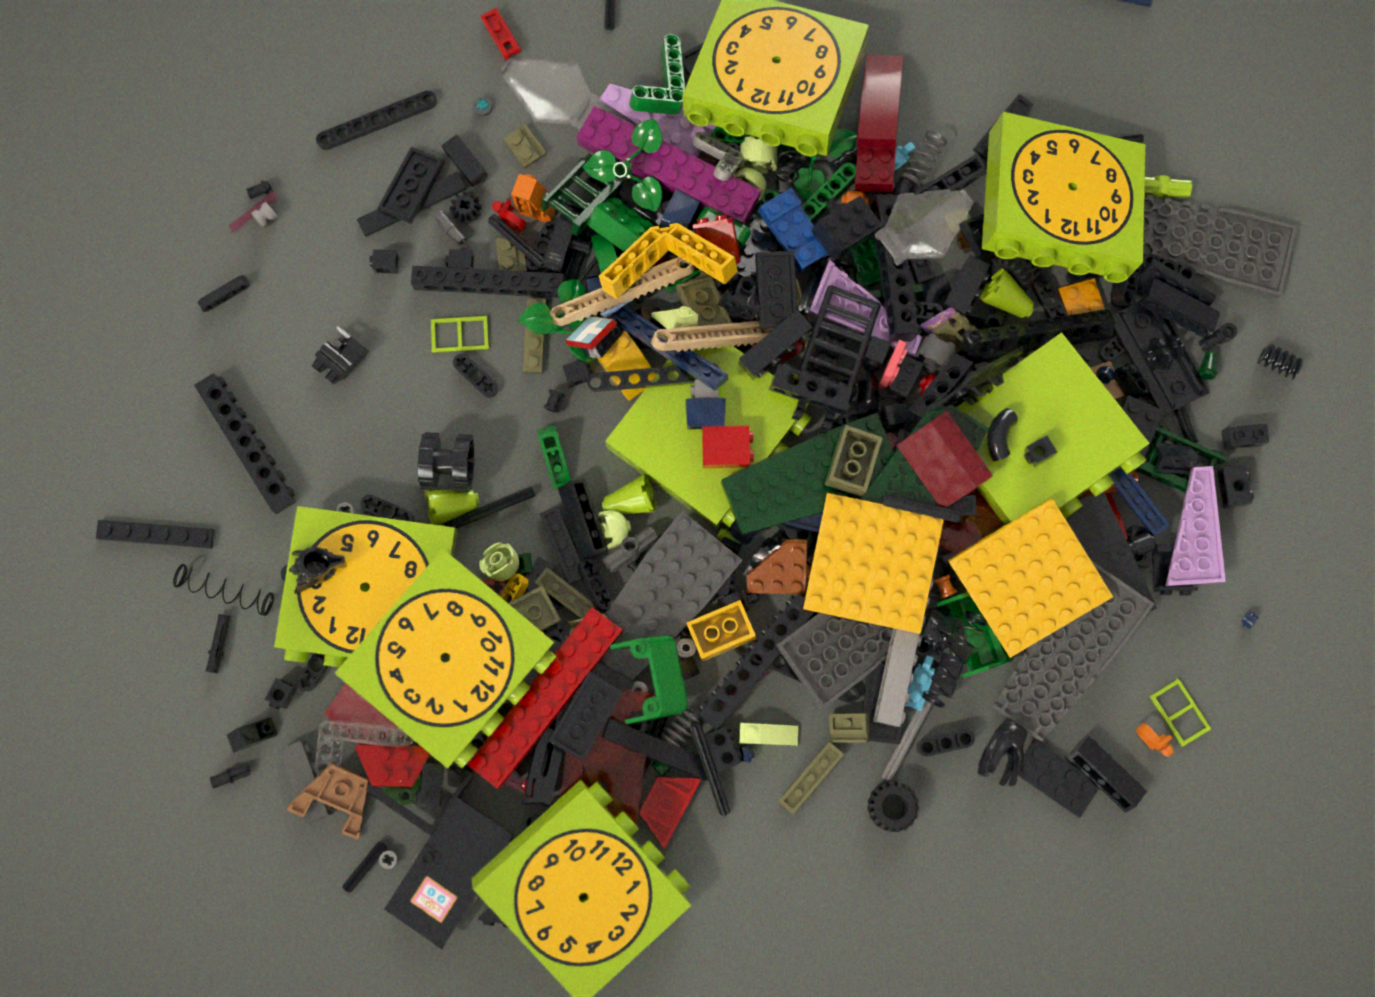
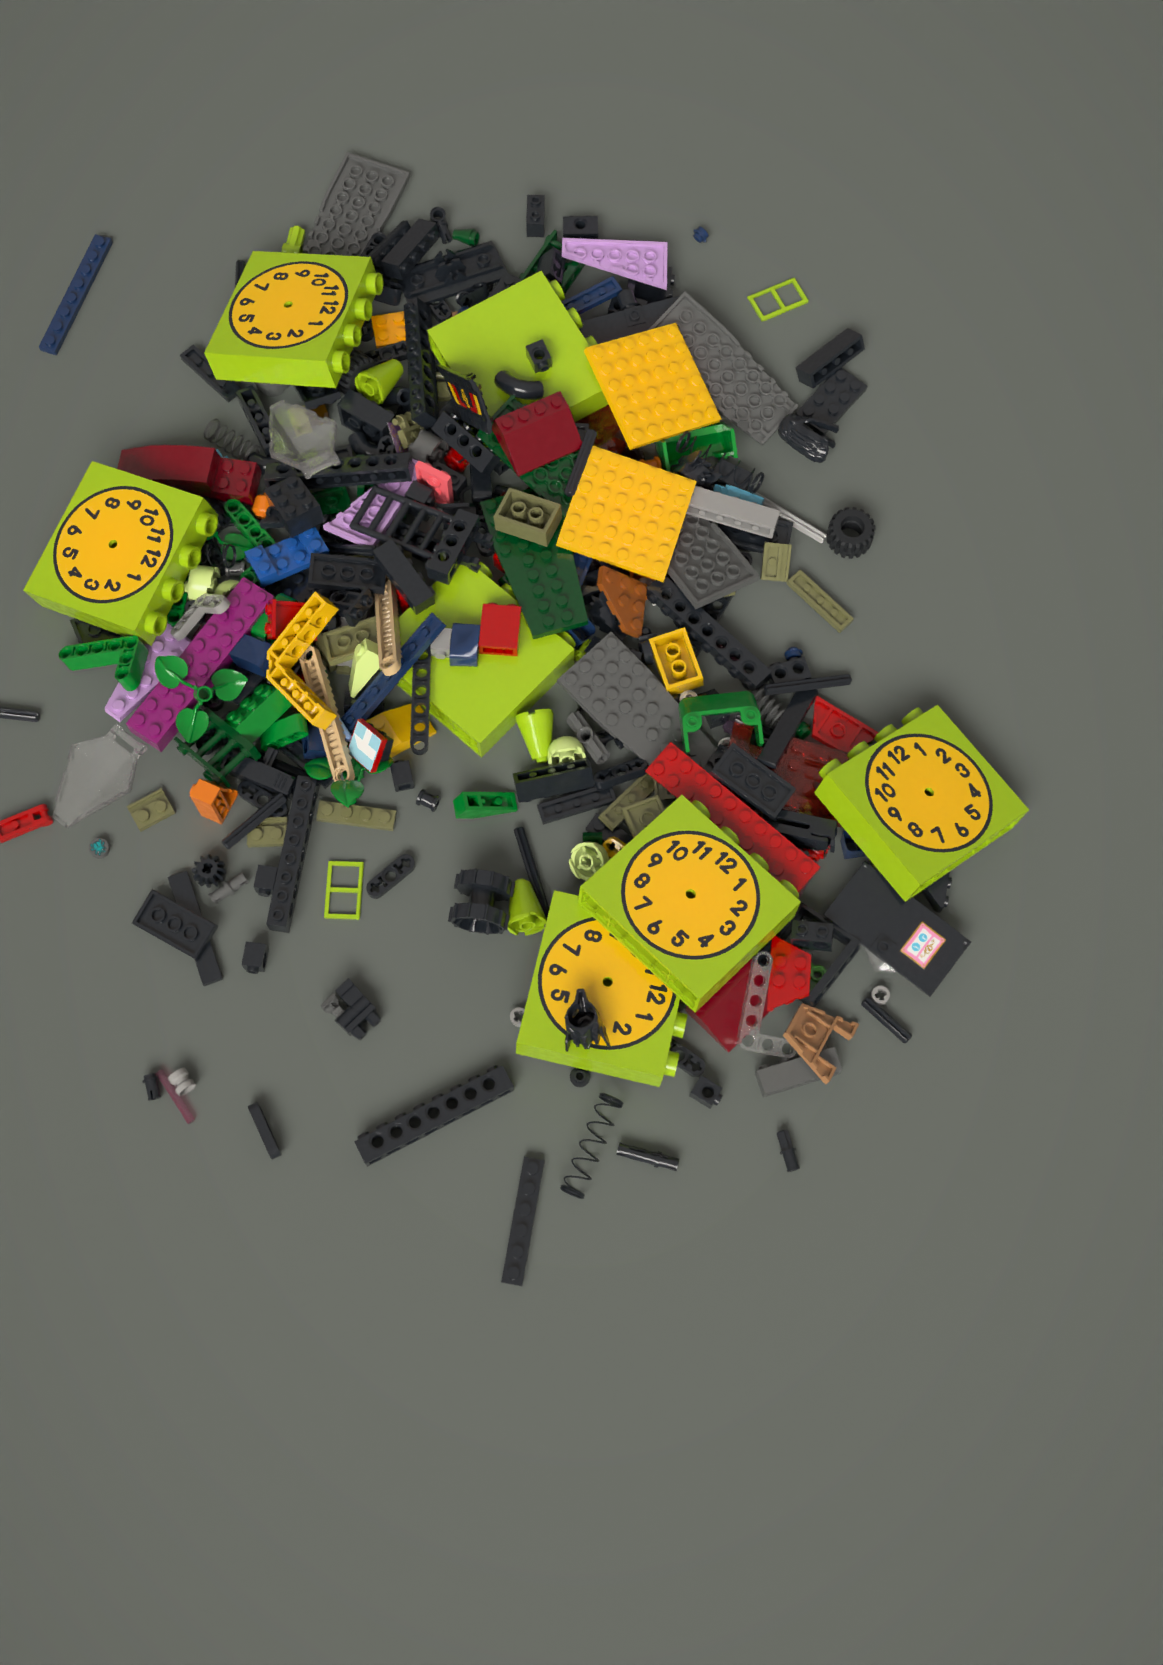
camera: 85 degrees left, 10 degrees down
(251, 734) = (747, 1125): black slope -> none
(372, 510) = (511, 983): black beam -> none
(386, 121) = (101, 965): black beam -> none
(464, 160) = (157, 869): black beam -> none
(506, 213) = (229, 824): red piece -> none
(768, 734) = (776, 636): yellowish green slope -> none
(955, 743) = (794, 492): black beam -> none
(1153, 741) = (804, 314): orange piece -> none
(1185, 424) = (519, 261): black axle -> none
(1281, 360) = (470, 180): black piece -> none

